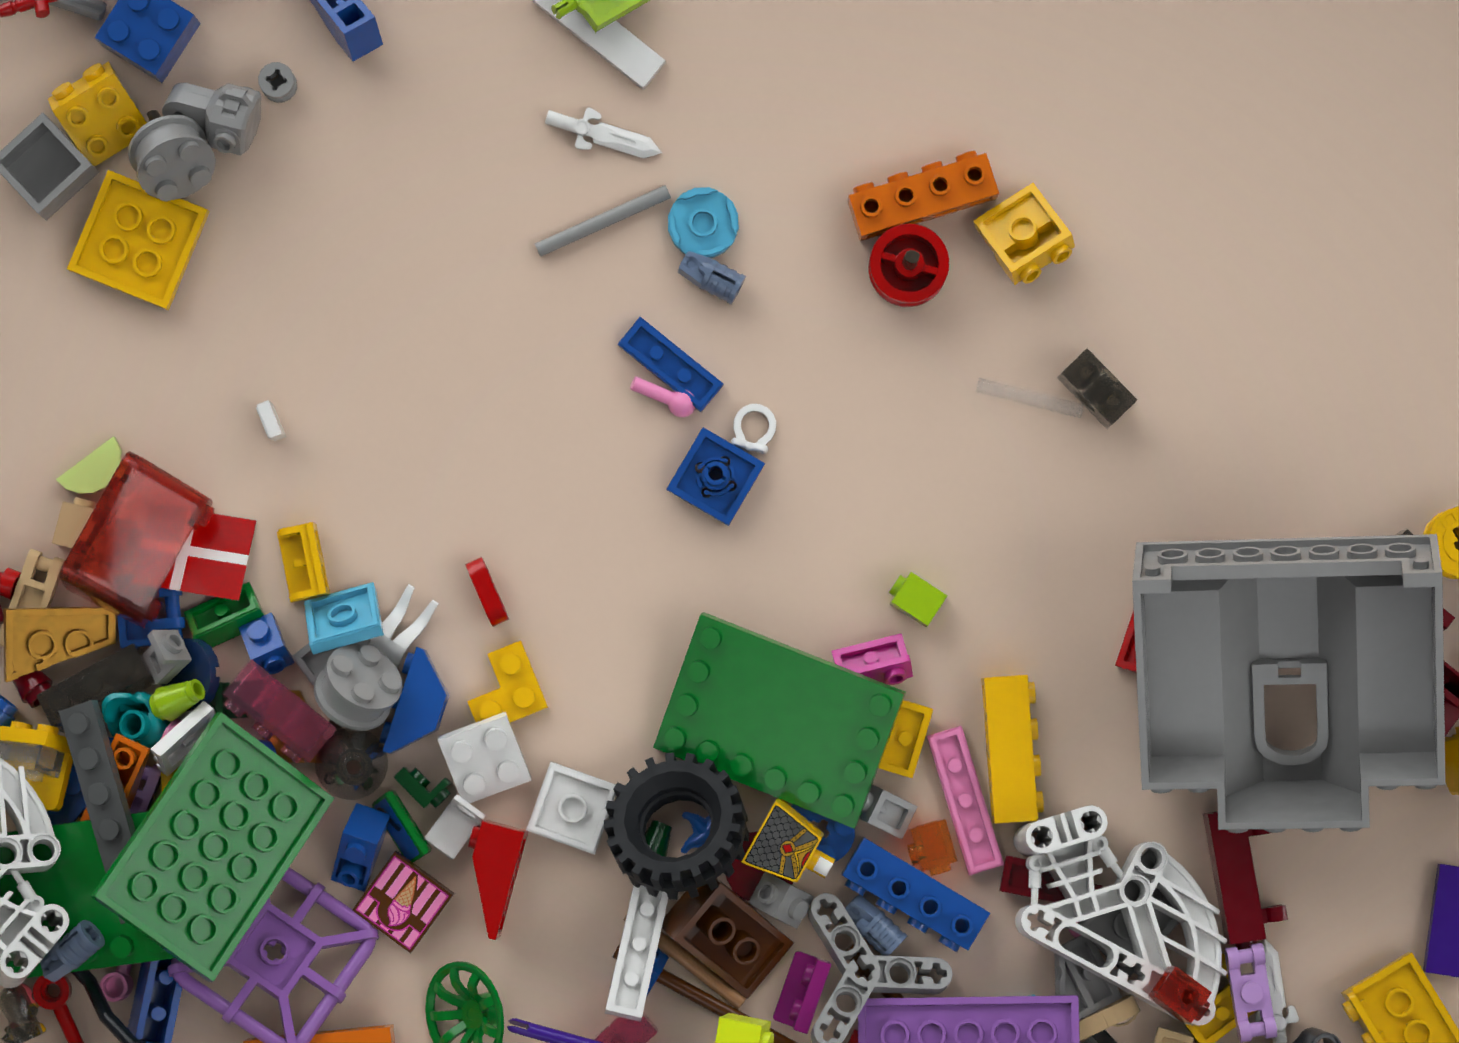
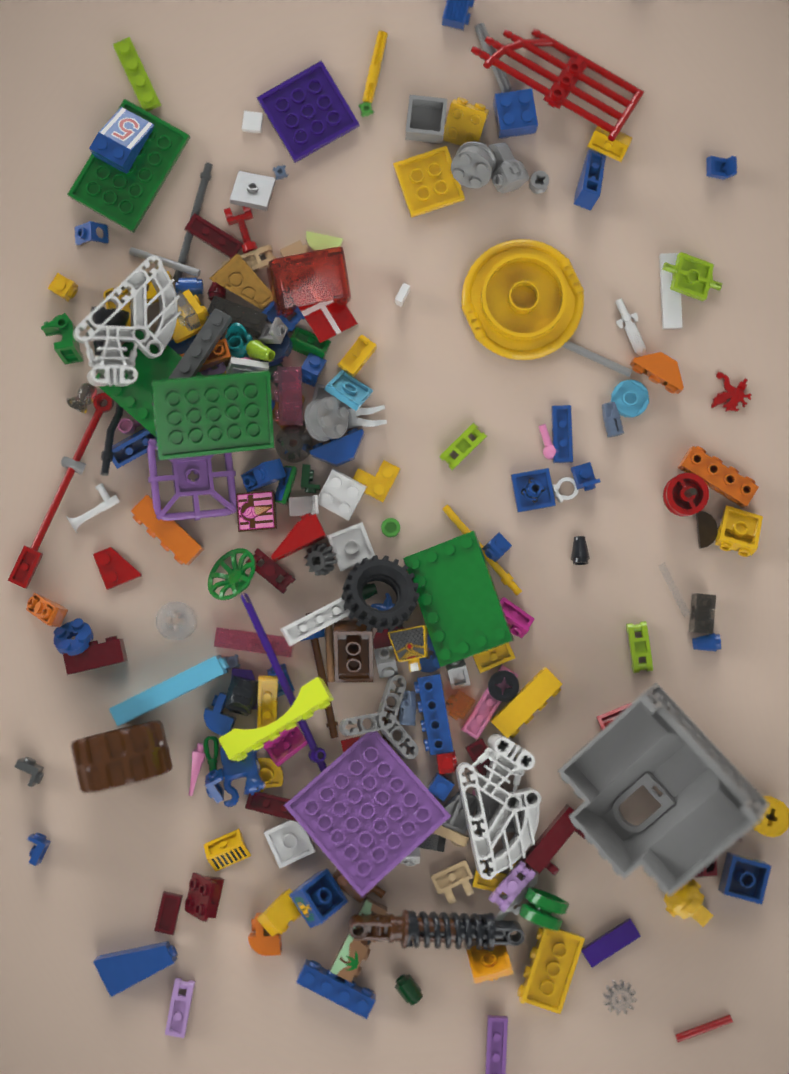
camera: 50 degrees right, 0 degrees up
(72, 950) = (124, 394): sand blue hinge -> none
(427, 253) = (522, 299): none -> yellow piece
(487, 591) = (408, 438): red beam -> none
(509, 953) = (271, 571): none -> dark red plate
(553, 868) = (320, 559): none -> dark grey gear
(566, 522) = (462, 446): none -> lime plate
(593, 727) = (390, 527): none -> bright green tile
(698, 146) = (660, 370): none -> orange slope
(753, 599) = (496, 547): none -> blue bracket
(759, 386) = (584, 477): none -> blue bracket
(801, 991) = (356, 701): magenta bracket -> none
(809, 623) = (506, 578): none -> yellow bar
(825, 68) = (734, 394): none -> red piece
(860, 485) = (580, 551): none -> black cone
(916, 598) = (554, 613): lime brick -> none
(976, 761) = (508, 693): none -> black gear
(983, 277) = (706, 529): none -> dark brown tile
(998, 935) = (446, 762): none -> red brick
(1025, 973) = (440, 786): none -> blue brick
(1069, 518) = (639, 647): none -> lime plate
(1144, 416) = (708, 642): none -> blue cone
(1180, 995) = (487, 858): clear red brick -> none
(1320, 975) = (544, 909): none -> green wheel

